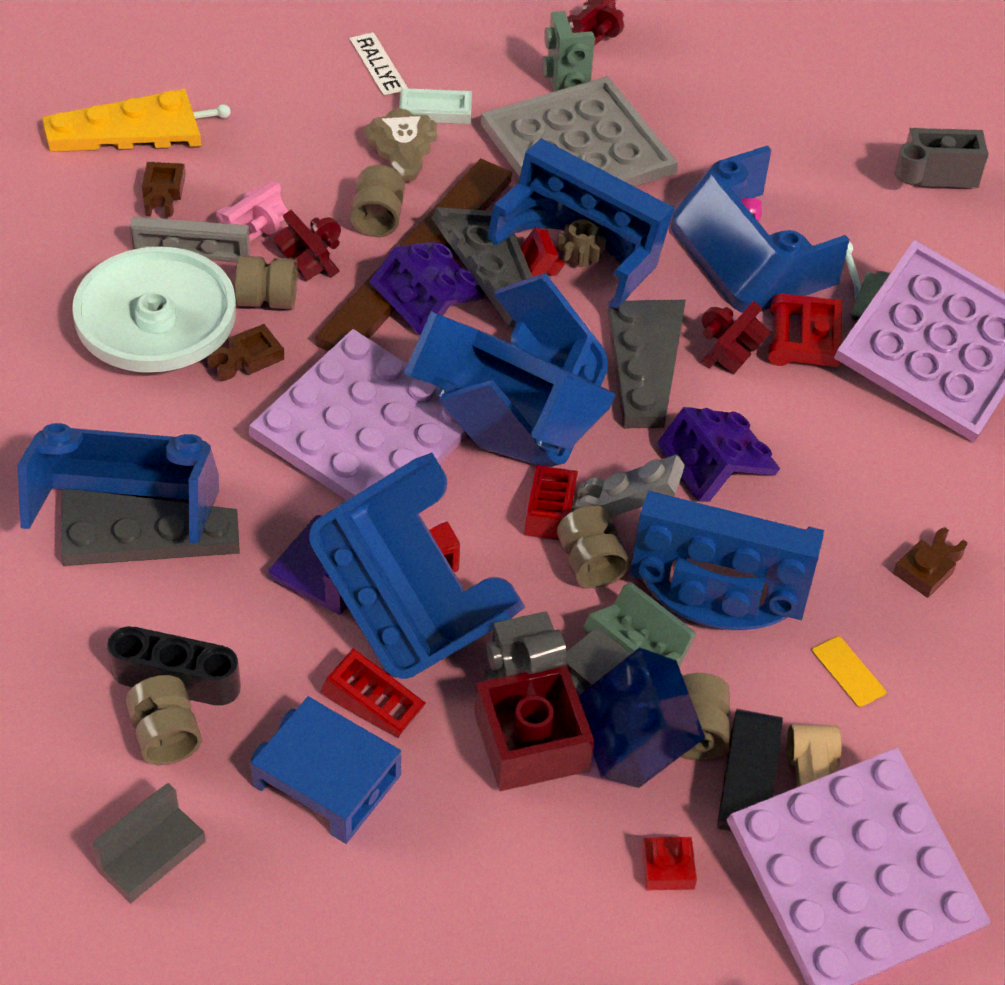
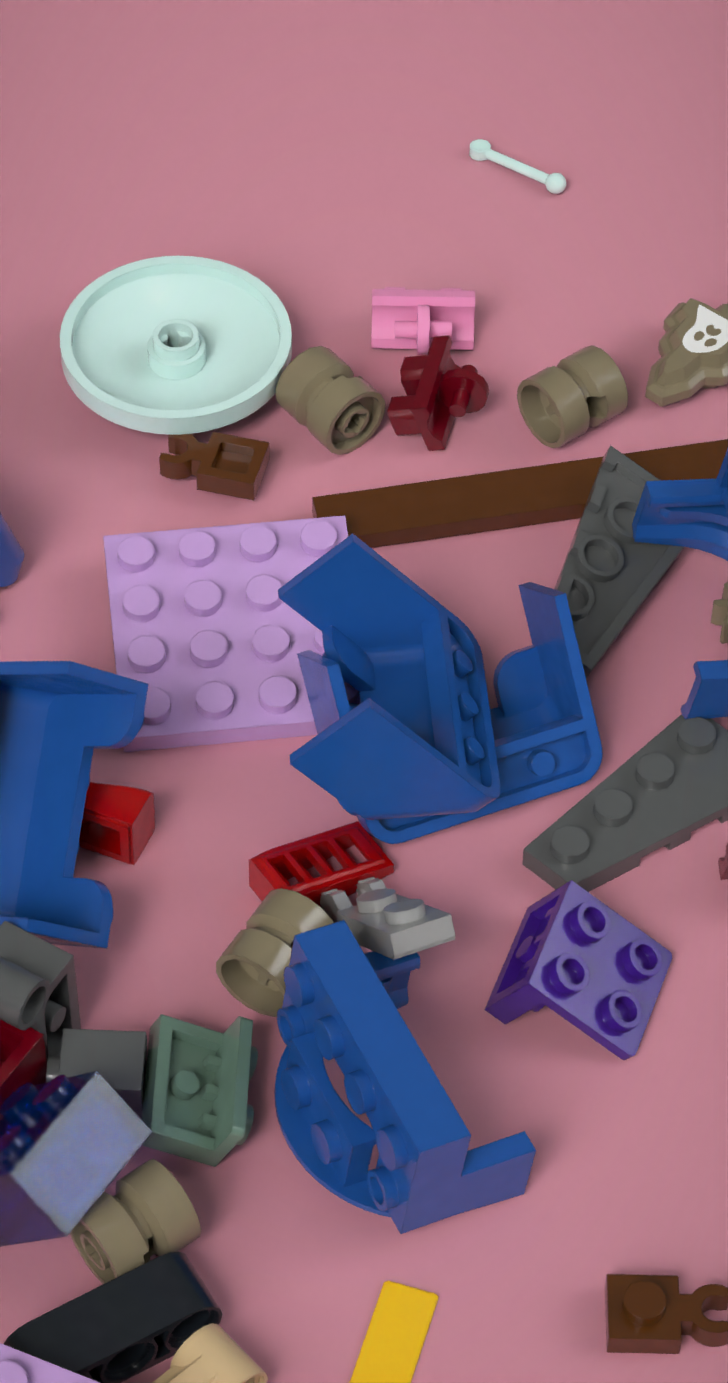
camera: 50 degrees right, 0 degrees up
(145, 119) = (442, 132): yellow wing -> none
(162, 185) = (372, 218): reddish brown plate -> none
(208, 239) = (320, 299): light grey tile -> none
(424, 280) = (500, 522): dark purple bracket -> none
(541, 253) = (678, 592): red tile -> none

